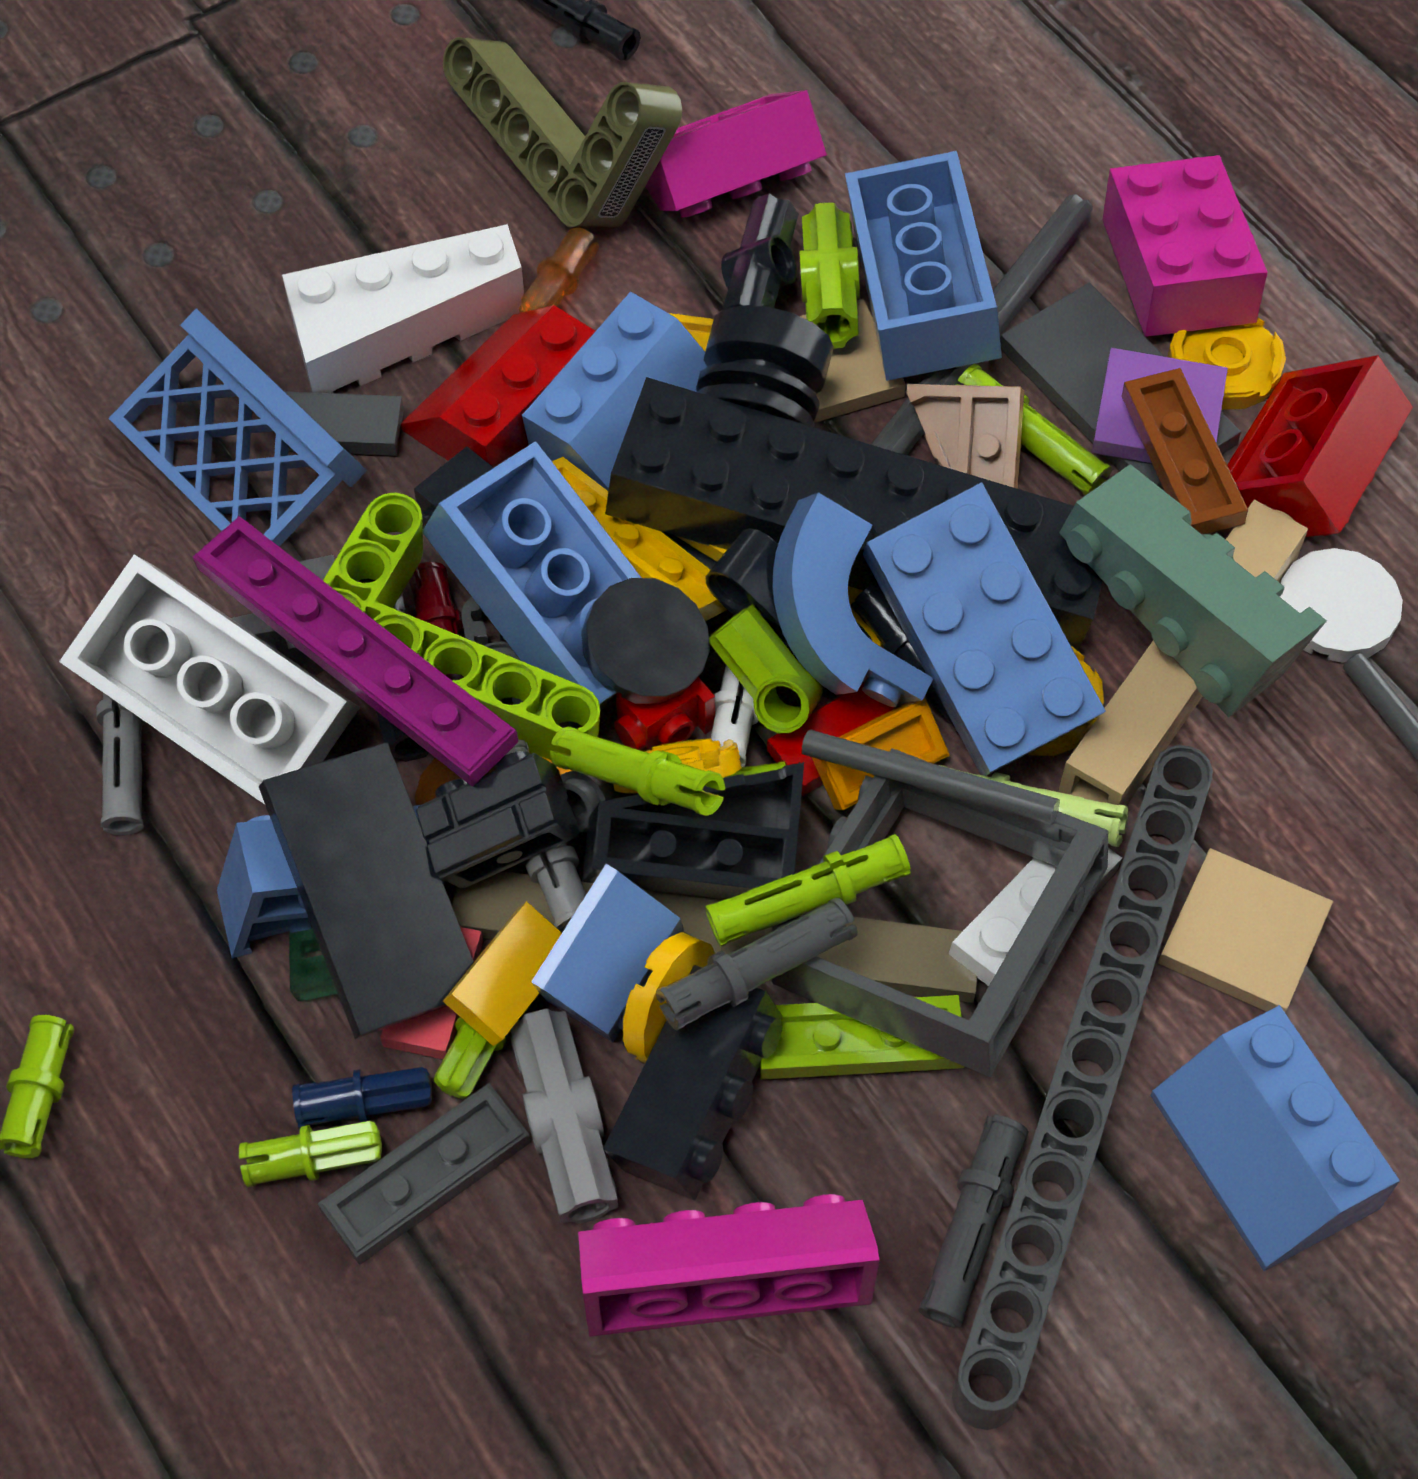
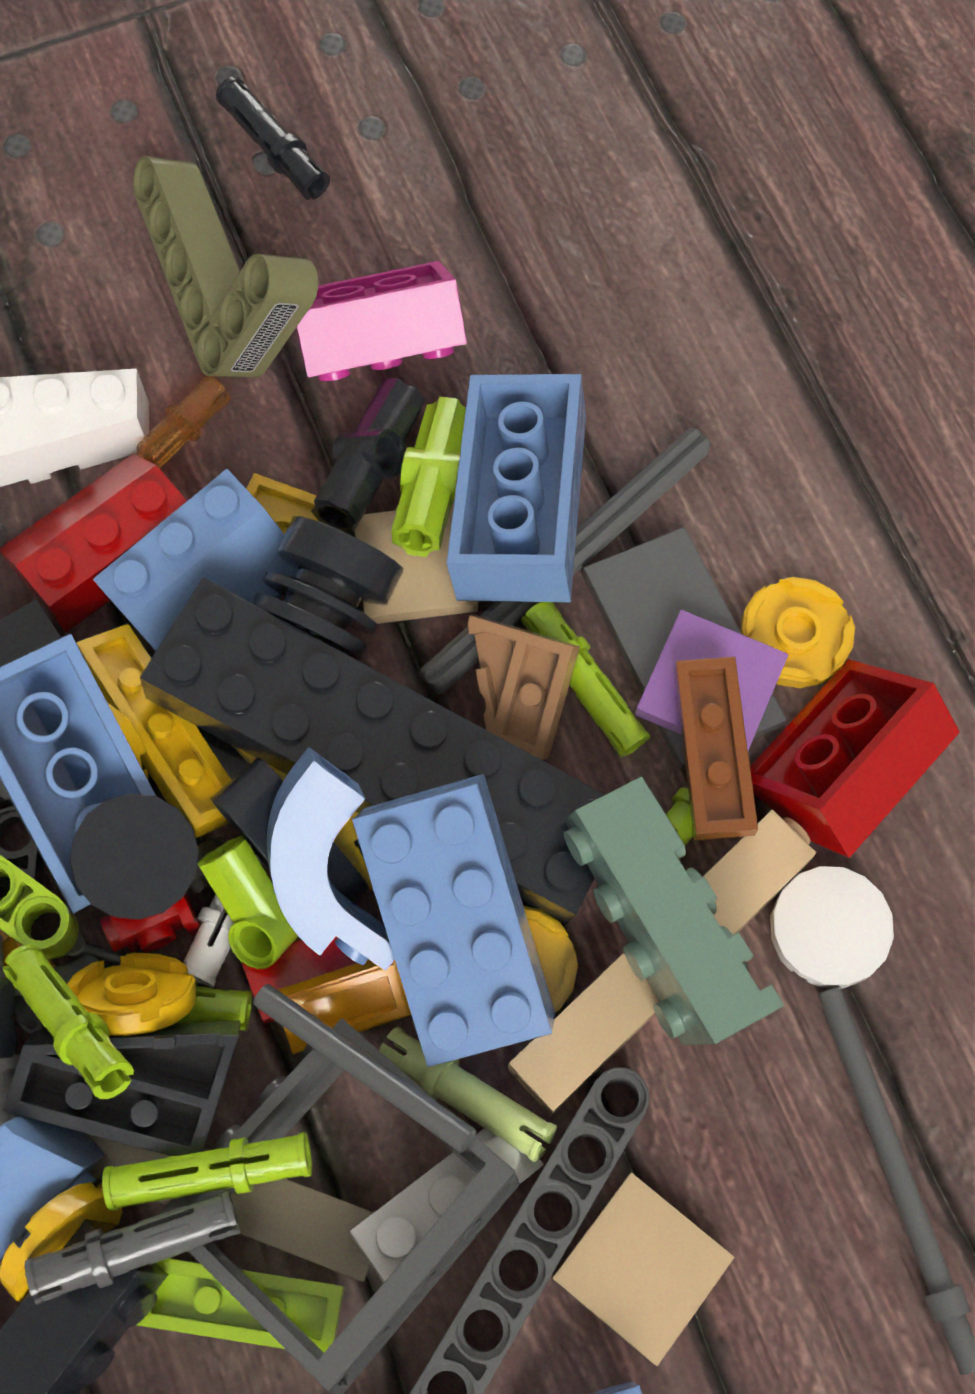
camera: 10 degrees right, 10 degrees up
(1183, 245) = (783, 509): dark pink brick -> none

